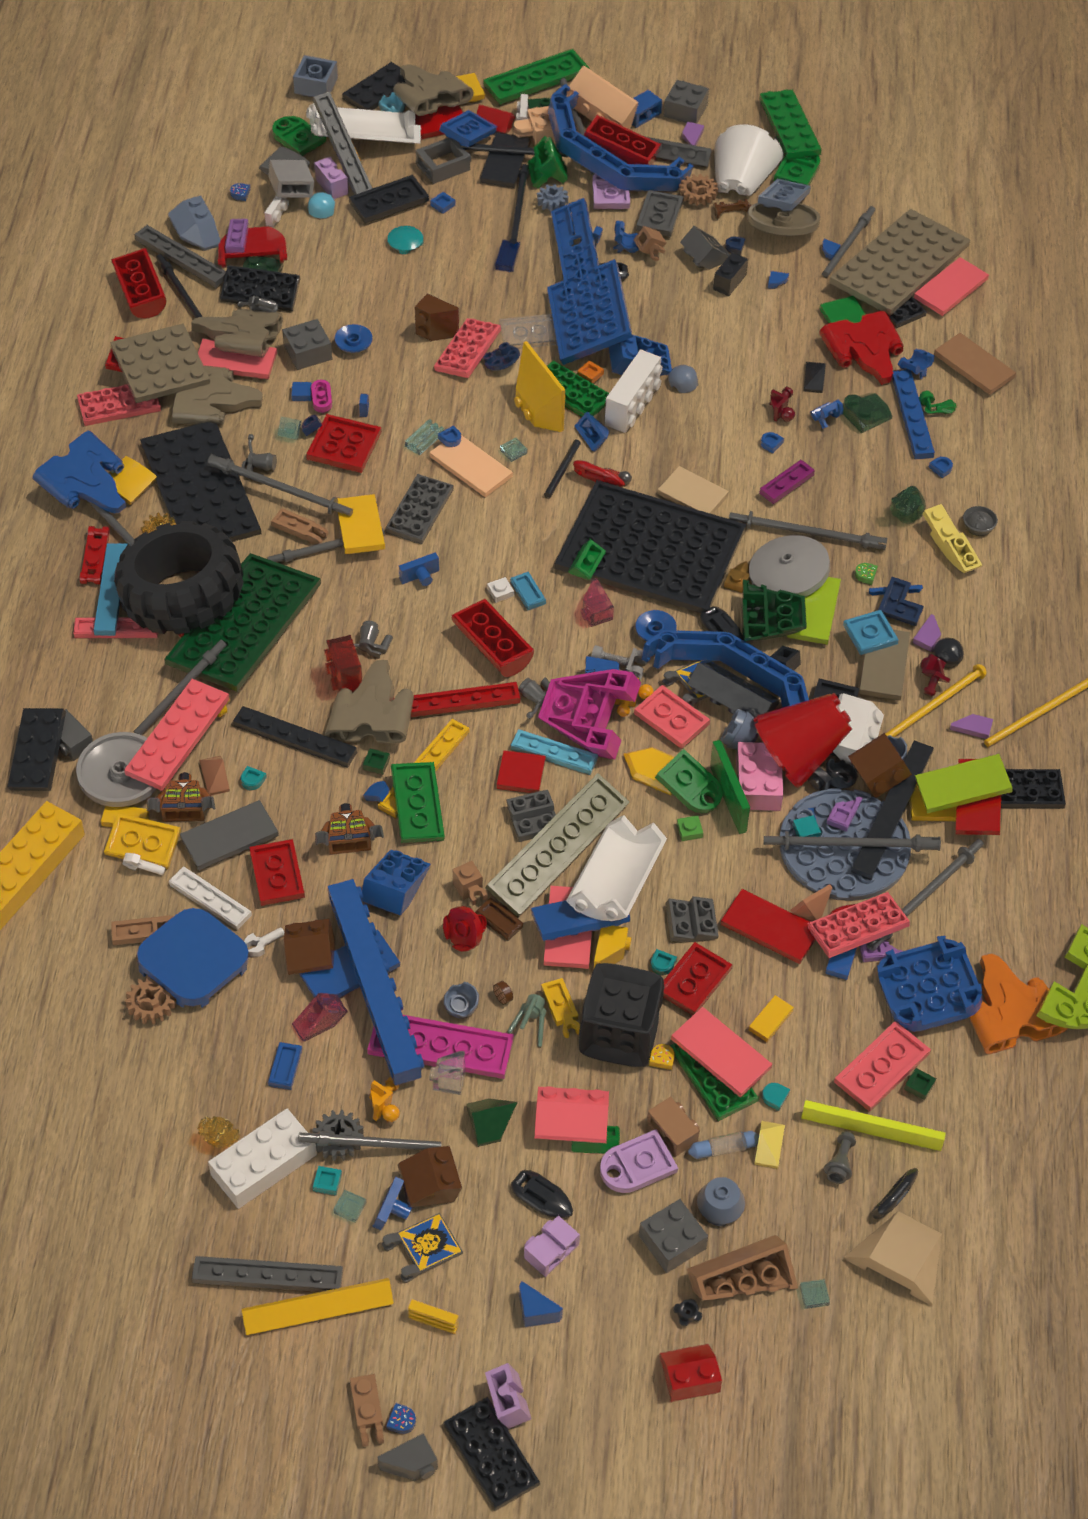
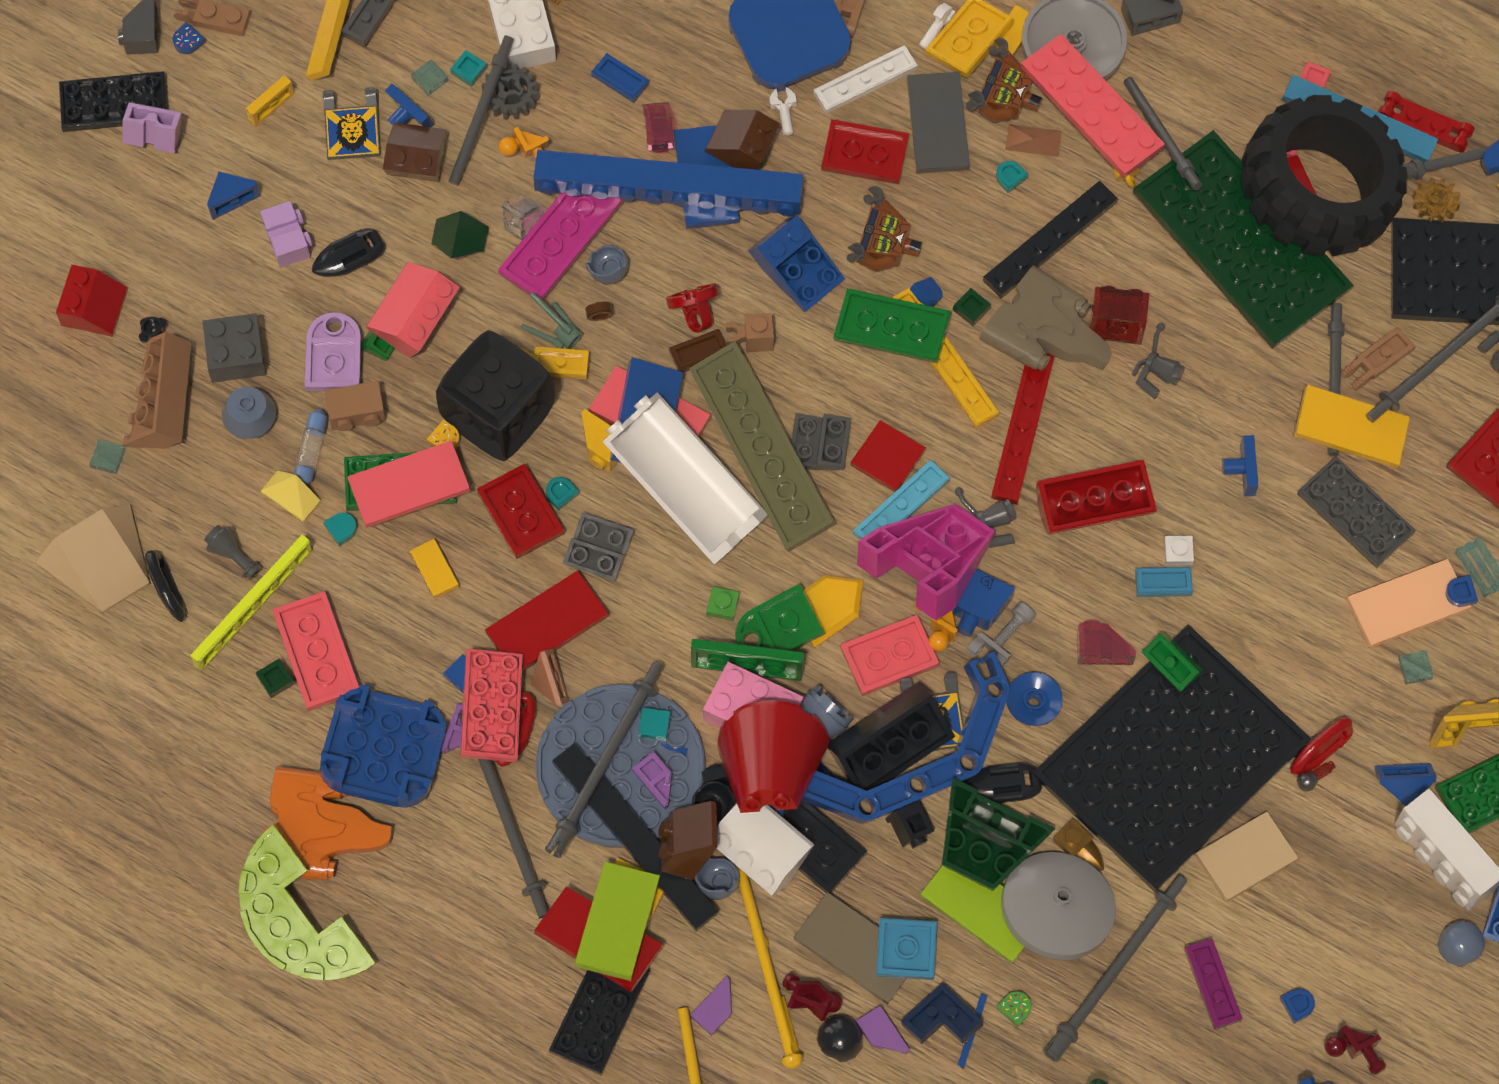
camera: 115 degrees right, 15 degrees up
(562, 468) = (1357, 713): black bar -> none

